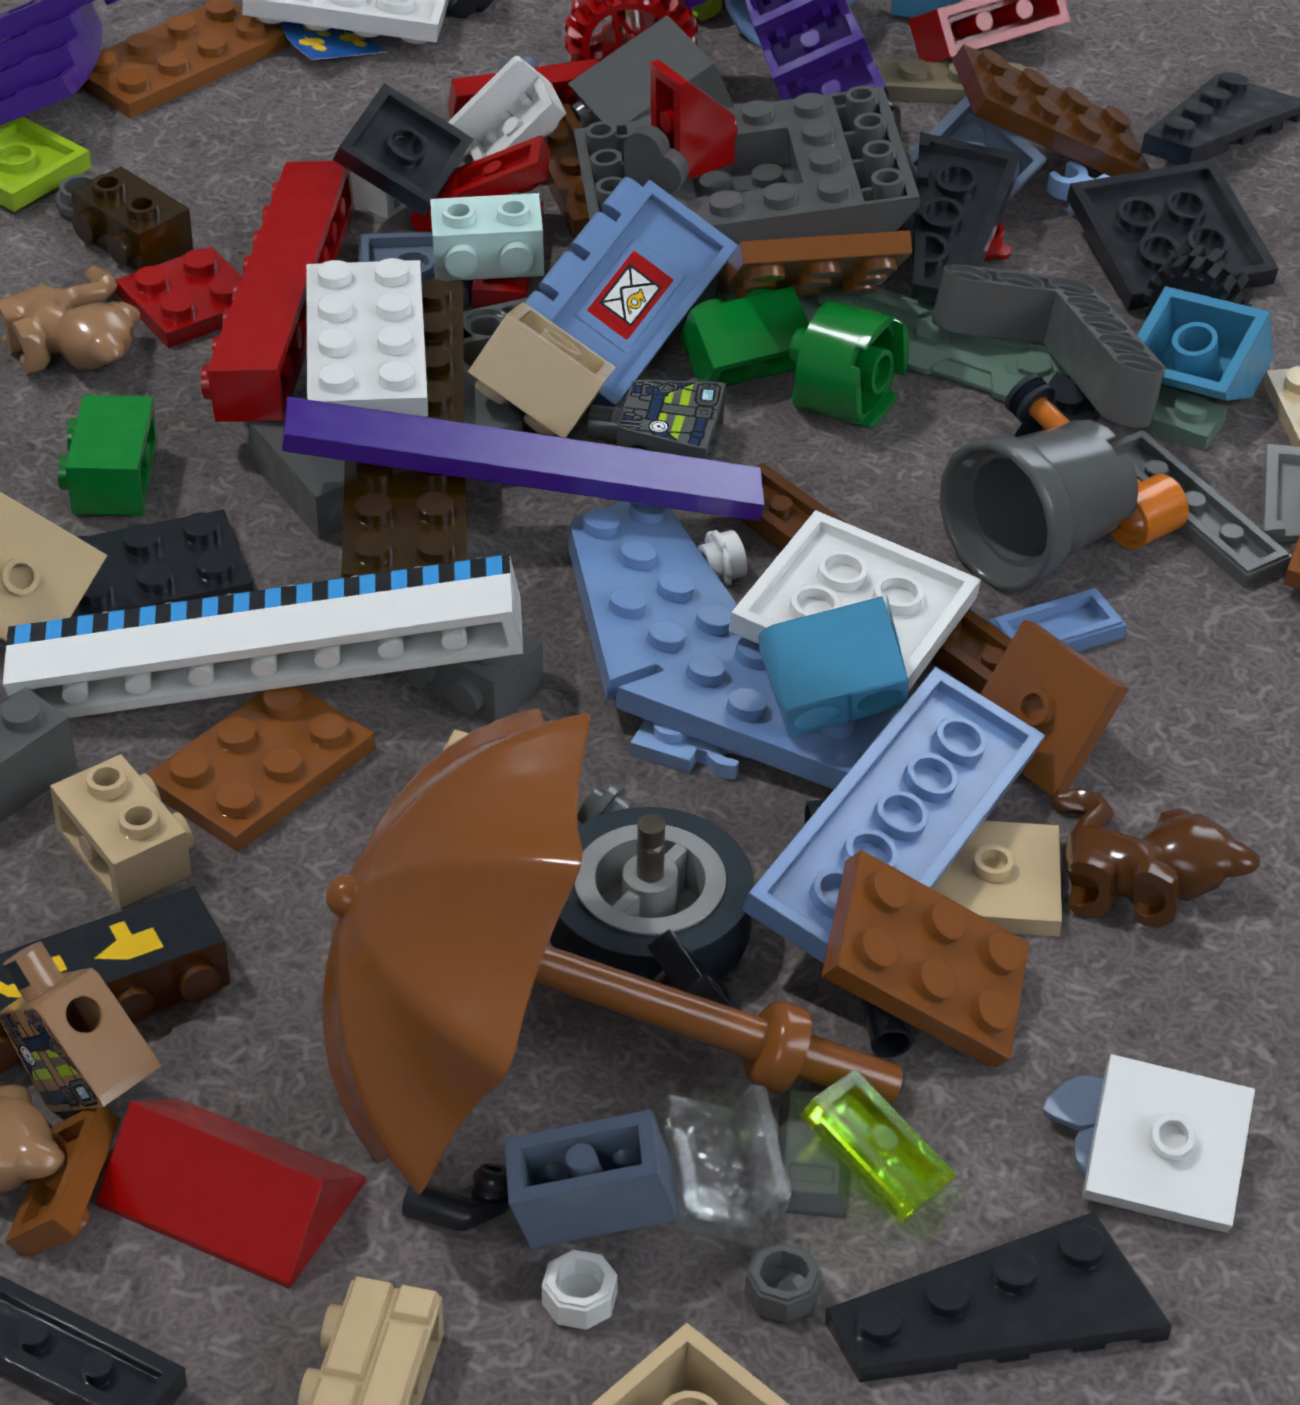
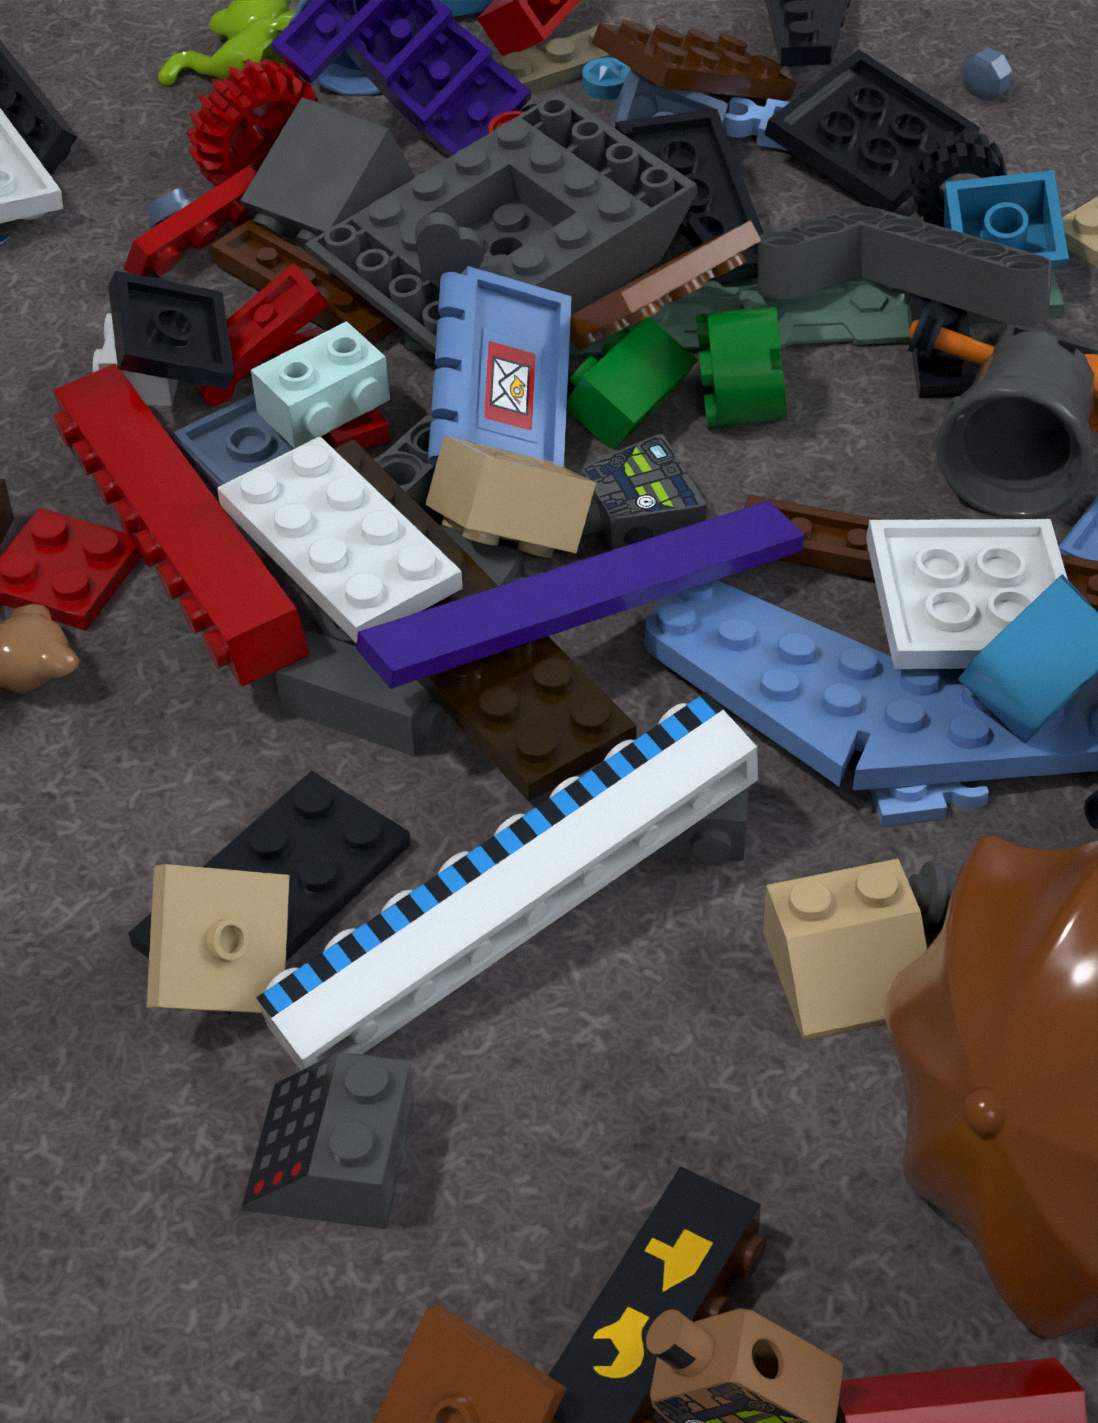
camera: 30 degrees left, 5 degrees up
(109, 455) = (163, 768): green brick -> none
(122, 830) = (536, 1145): tan brick -> none
(260, 763) = (582, 1011): dark orange plate -> none
(510, 110) = (225, 251): white bracket -> none
(691, 120) = (454, 187): red slope -> none
(725, 555) = (795, 594): white plate -> none

